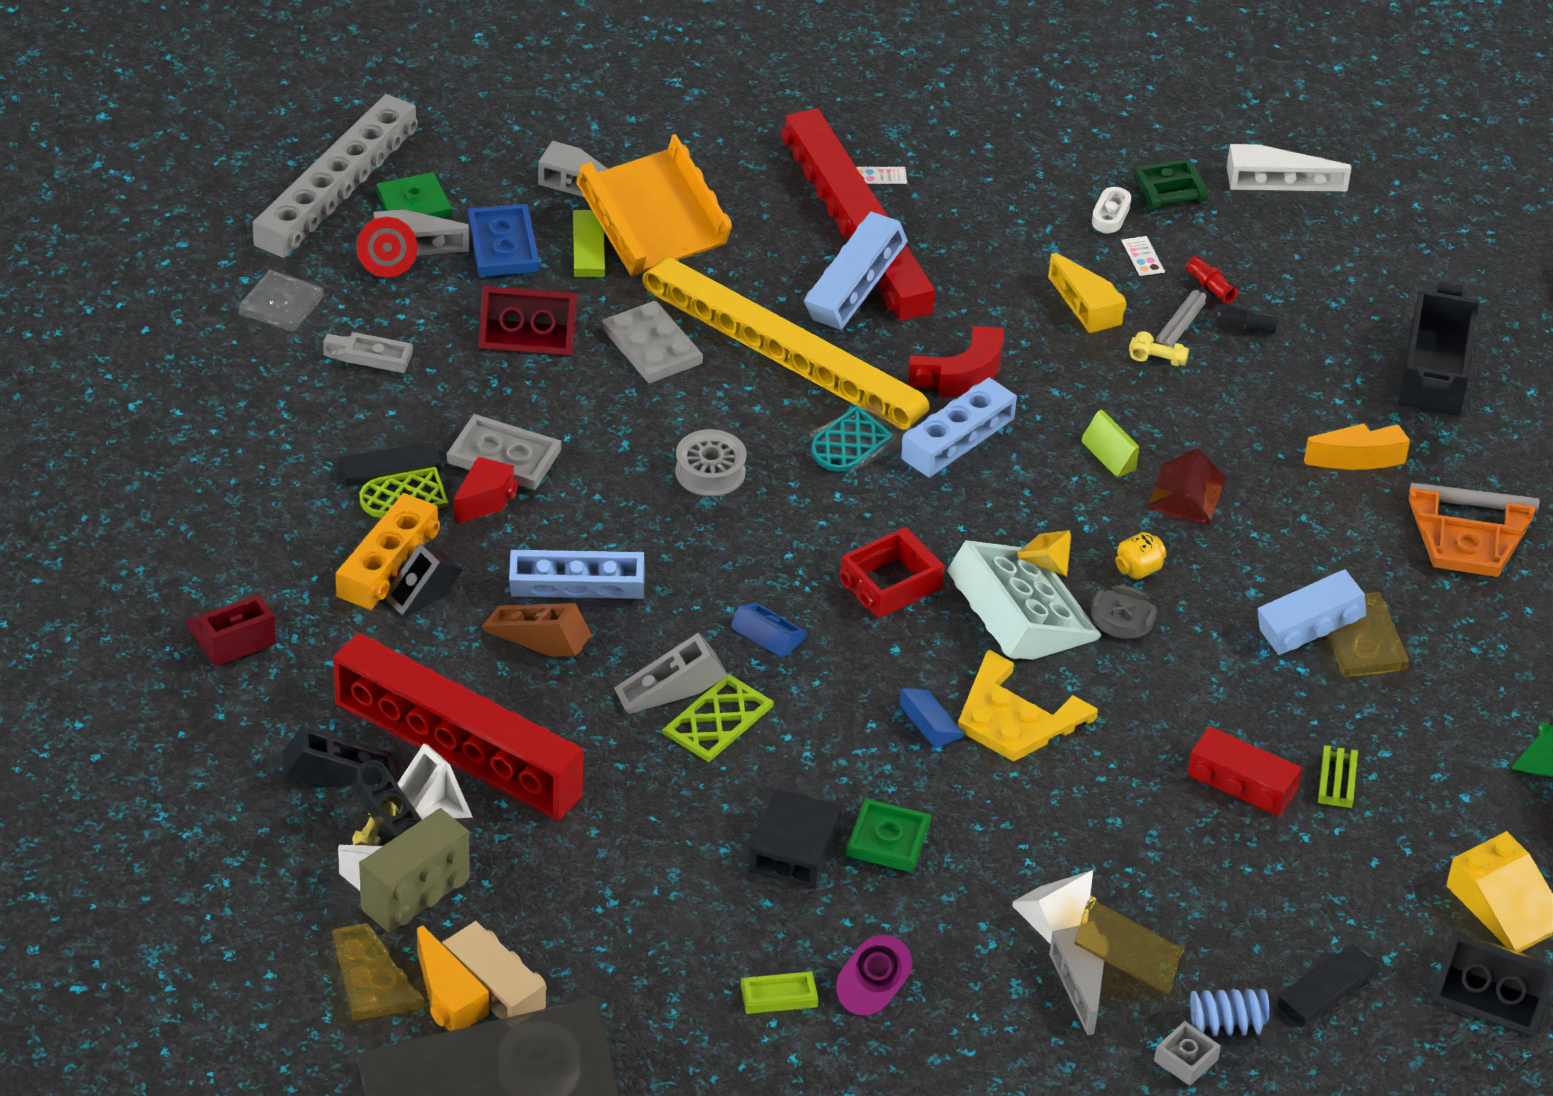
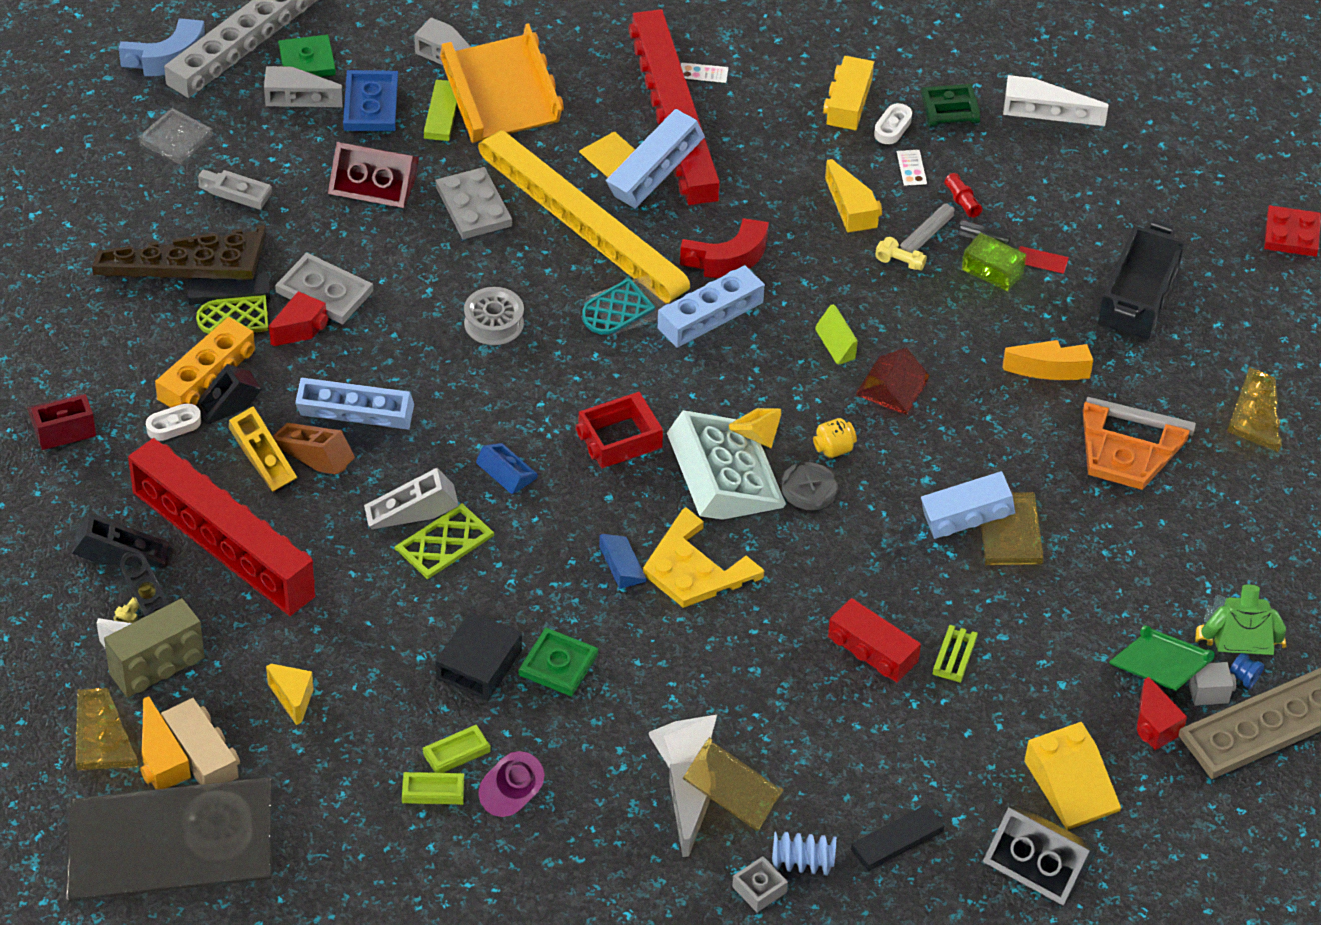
camera: 10 degrees right, 5 degrees up
(237, 214) = (155, 56): none -> medium blue arch
(334, 433) = (188, 257): none -> dark brown wing
(365, 617) = (173, 421): none -> white plate
(386, 247) = (269, 98): red tile -> none
(432, 785) = (187, 578): white slope -> none
(478, 636) = (261, 449): none -> yellow slope
(583, 899) = (292, 688): none -> yellow slope
(794, 273) = (608, 153): none -> yellow sticker
(795, 946) = (456, 749): none -> lime tile
(1052, 180) = (848, 92): none -> yellow brick
(1266, 347) = (994, 261): none -> clear neon green brick
(1316, 341) = (1044, 260): none -> red sticker

